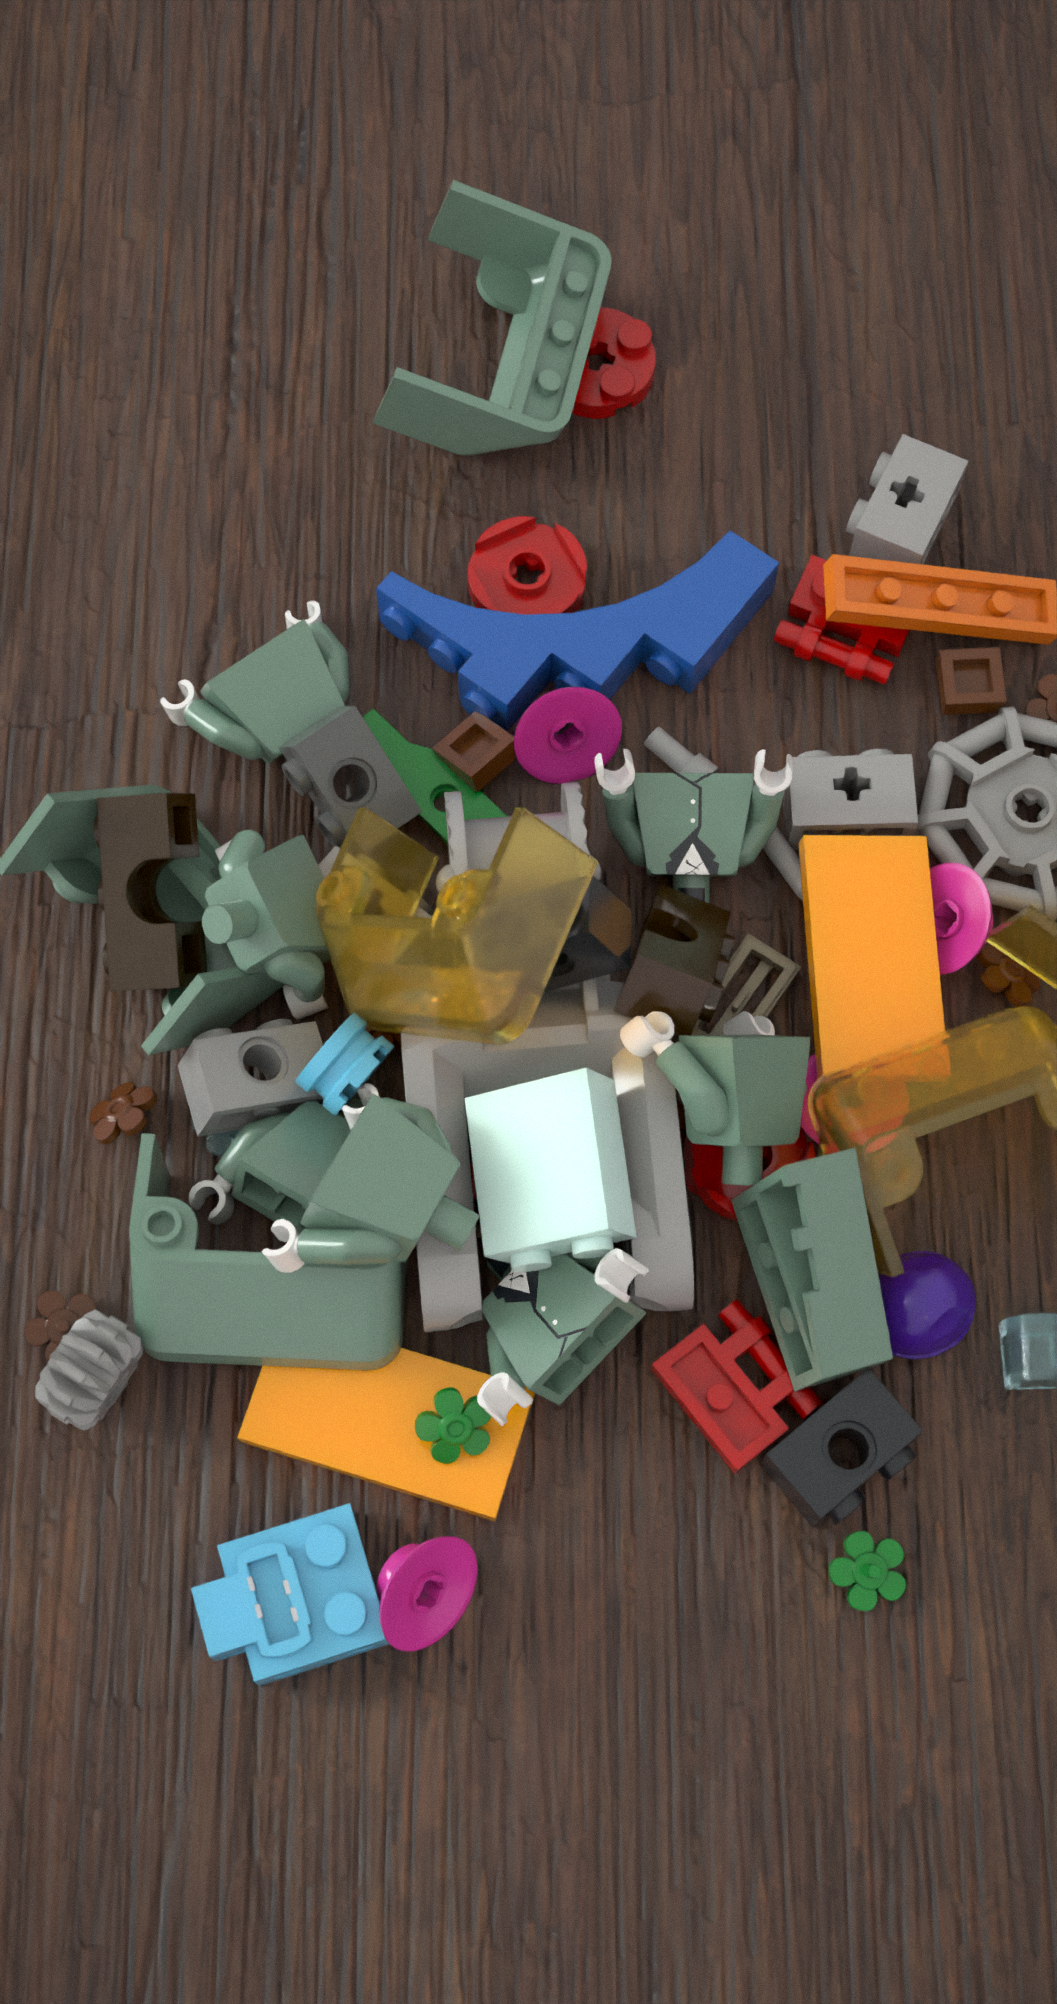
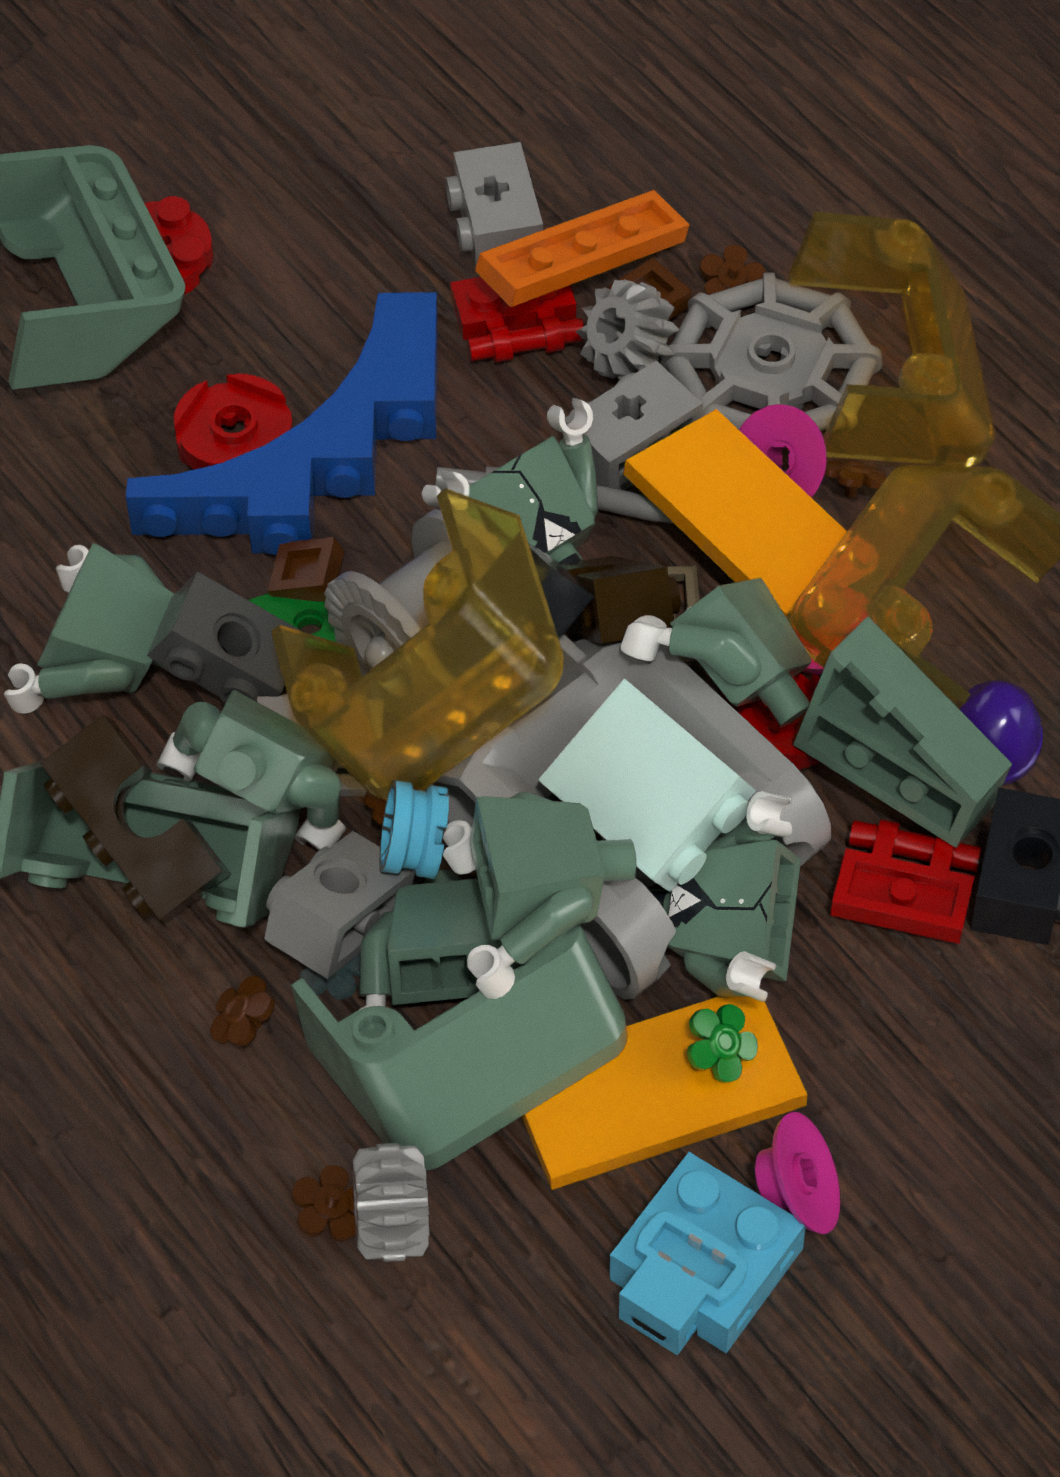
camera: 35 degrees left, 15 degrees down
(570, 754) = (389, 514): dark pink piece -> none
(915, 705) = (626, 328): none -> light grey gear

